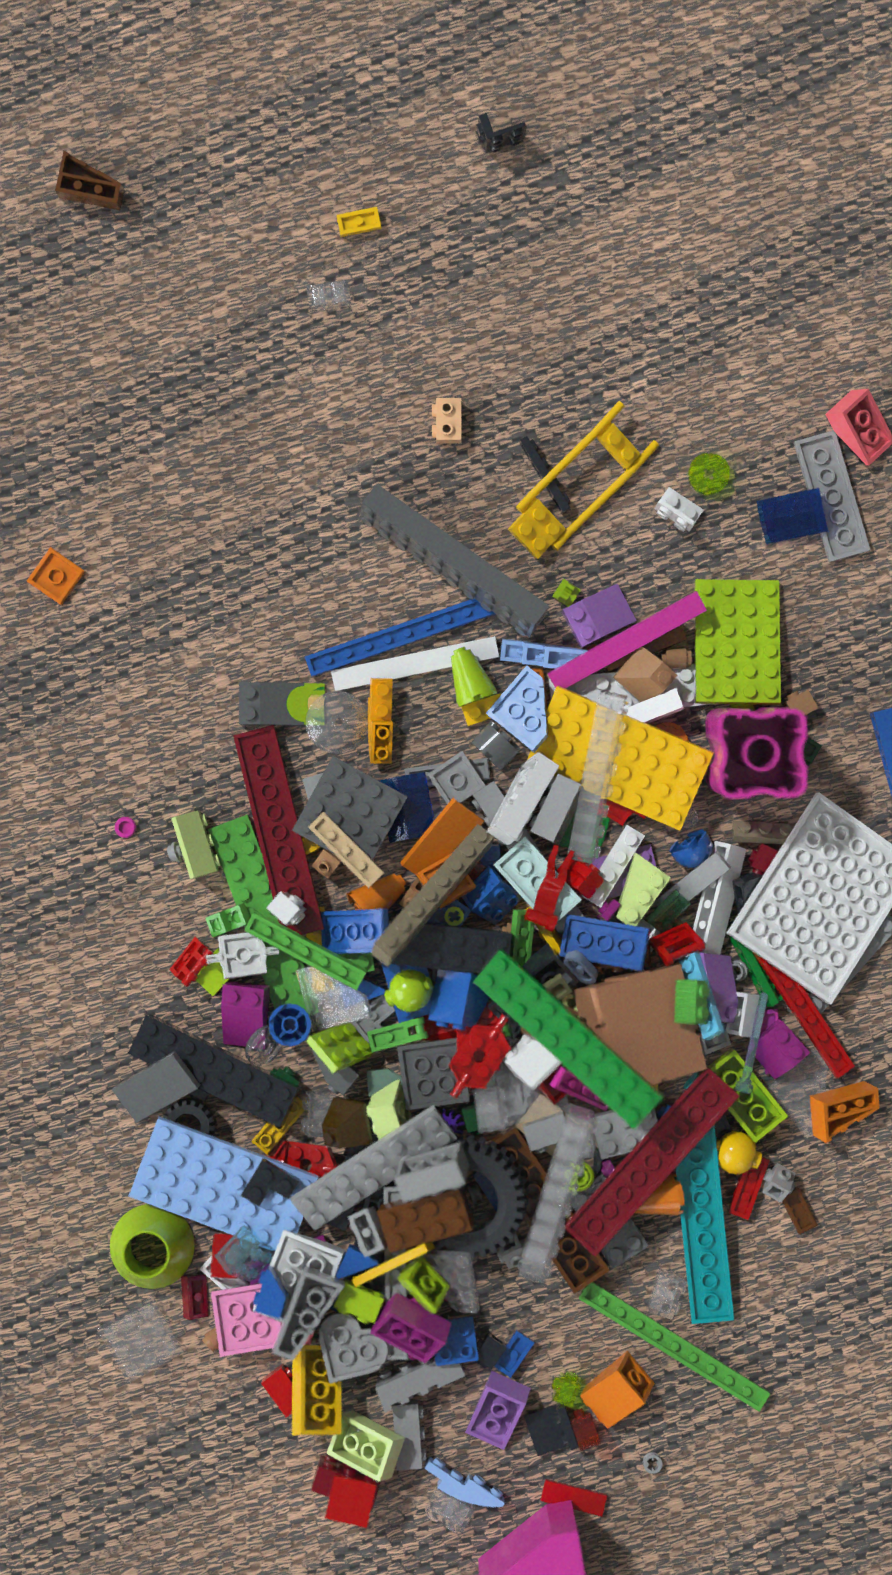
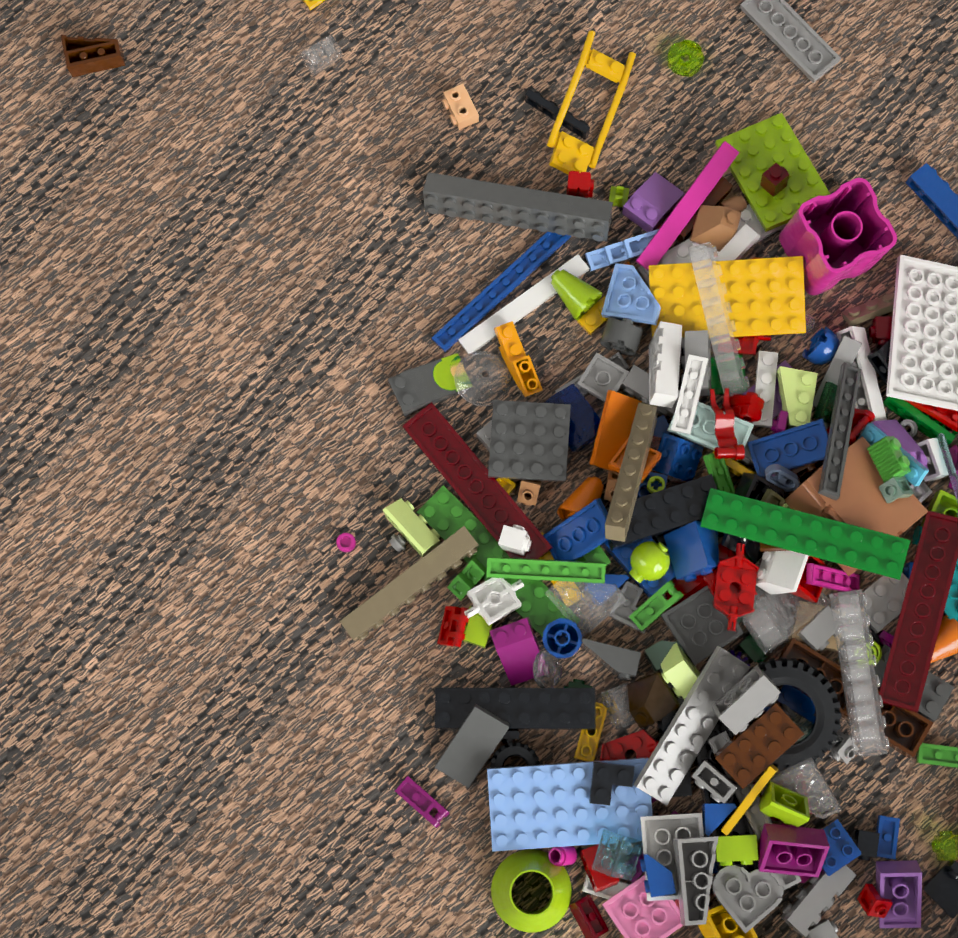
camera: 20 degrees left, 10 degrees down
(55, 576) = (197, 366): orange tile -> none
(85, 1115) = (421, 801): none -> magenta plate
(167, 900) = (409, 584): none -> dark tan brick
(194, 1230) = (562, 855): none -> dark pink brick
(340, 1046) = (613, 636): lime plate -> none
(346, 850) = (541, 468): tan plate -> none
(467, 1407) = (873, 903): none -> red bracket
(528, 567) = (580, 184): none -> red brick
(529, 842) = (689, 394): none -> white plate
(658, 950) = (839, 431): none -> dark grey tile
(678, 509) = (675, 95): white bracket -> none
(683, 1034) = (896, 488): none -> sand green bracket
(729, 655) = (774, 179): none -> dark red brick
(792, 516) = (768, 57): clear blue slope -> none

